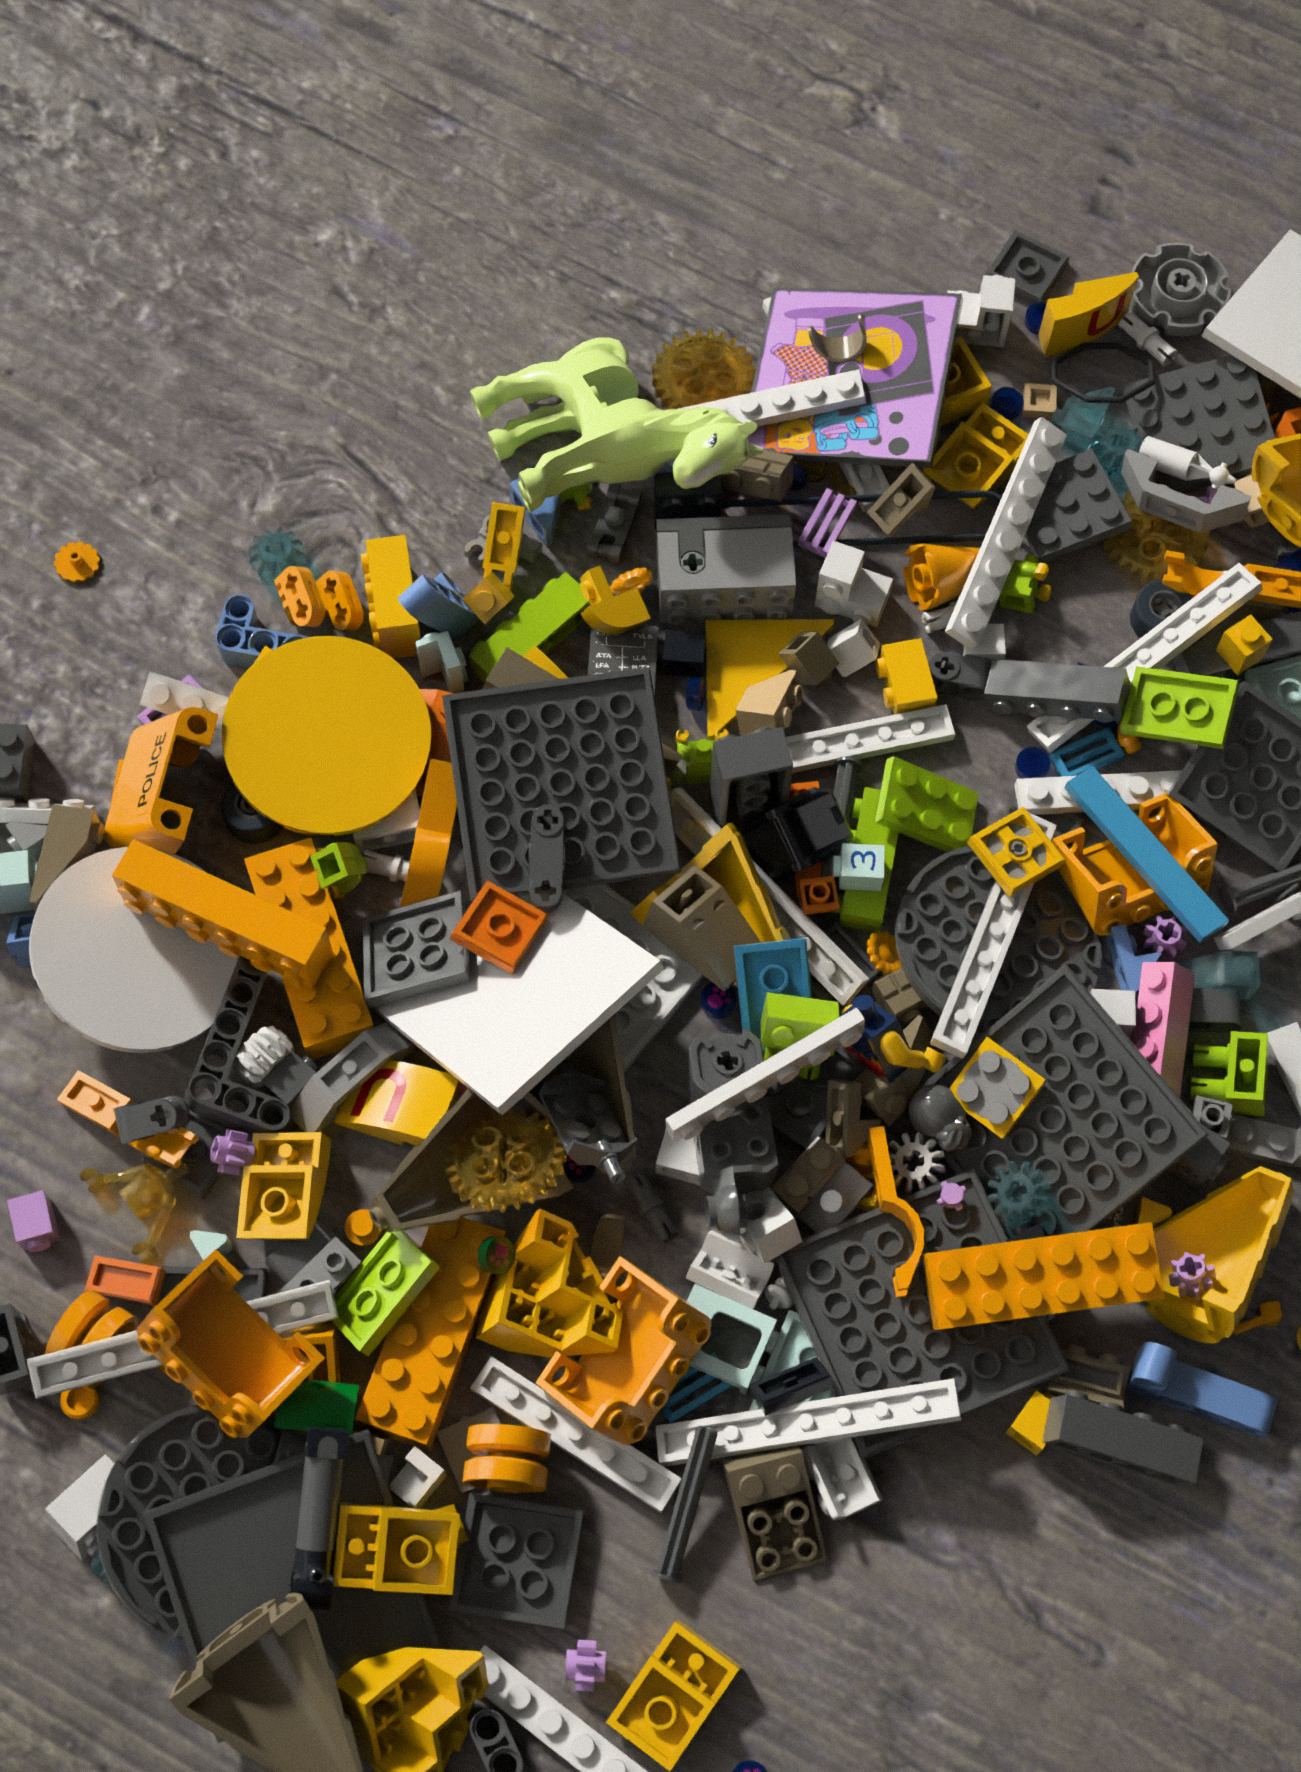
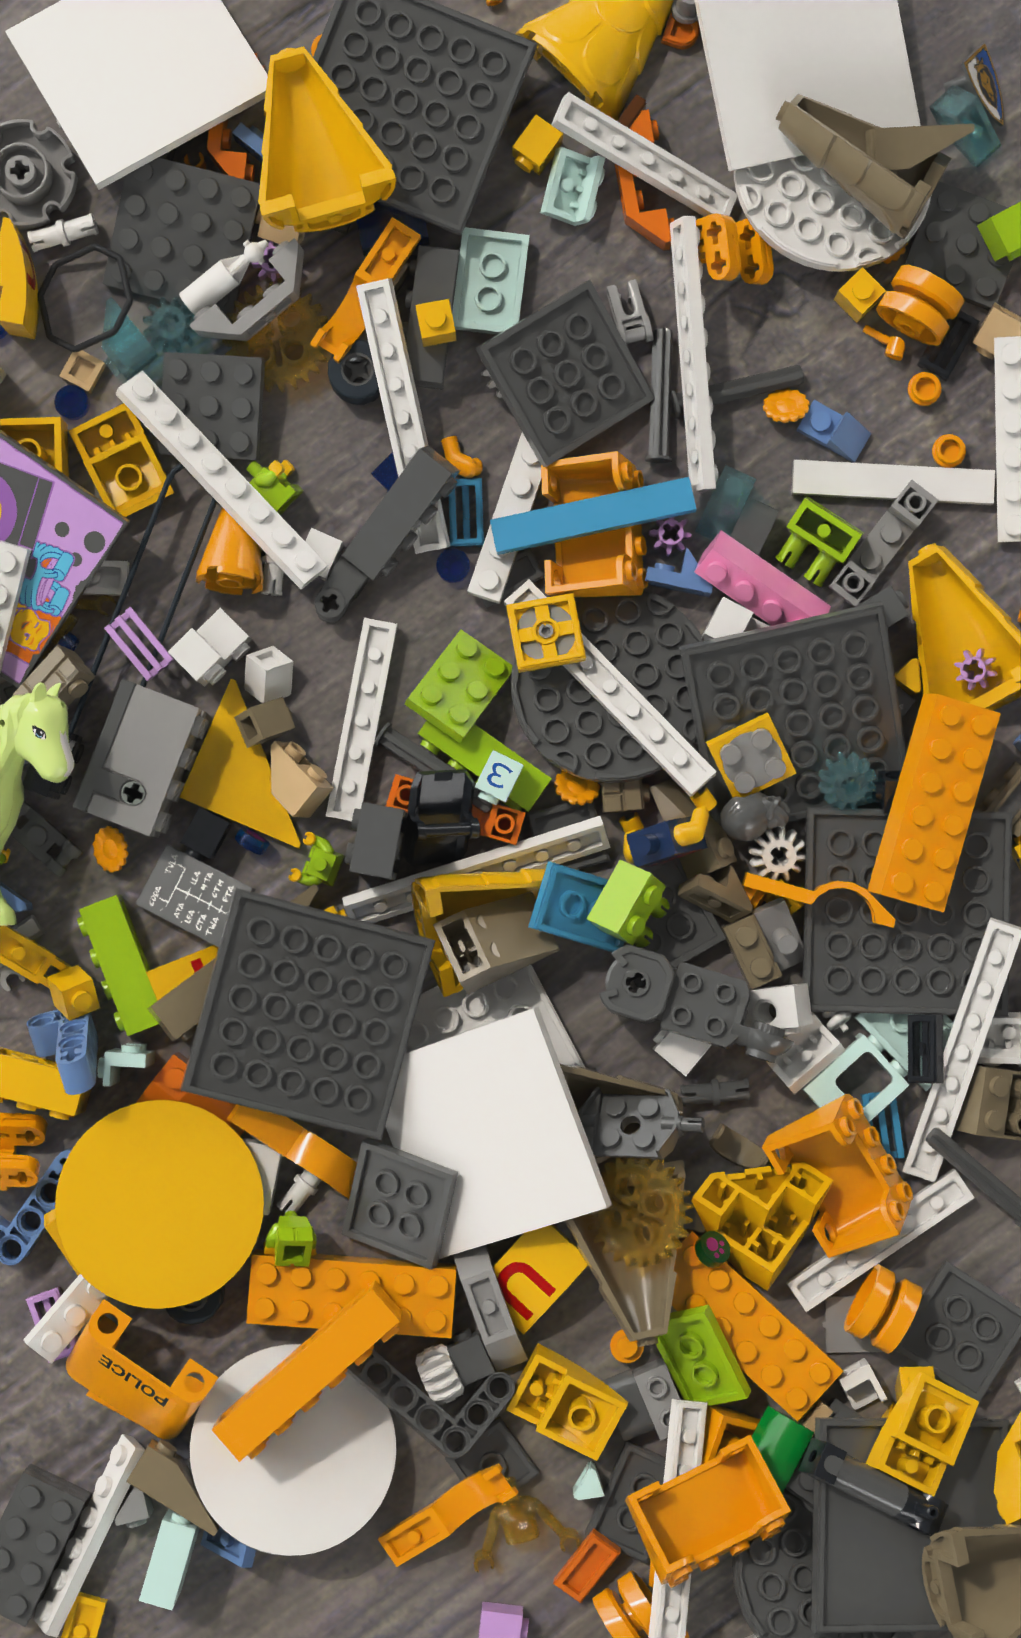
camera: 65 degrees left, 20 degrees up
(147, 1118) = (459, 1497): dark grey piece -> none
(232, 1152) = (517, 1435): lavender gear -> none
(499, 927) = (422, 1126): orange tile -> none
(546, 857) = (379, 1059): dark grey piece -> none
(607, 612) = (144, 883): yellow brick -> none
(716, 1002) = (558, 958): clear blue tile -> none
(754, 1082) = (675, 975): white plate -> none
(902, 499) = (153, 567): dark tan slope -> none
(906, 676) = (322, 641): yellow brick -> none
(951, 1195) = (825, 839): lavender piece -> none
(1180, 707) = (475, 417): lime plate -> none

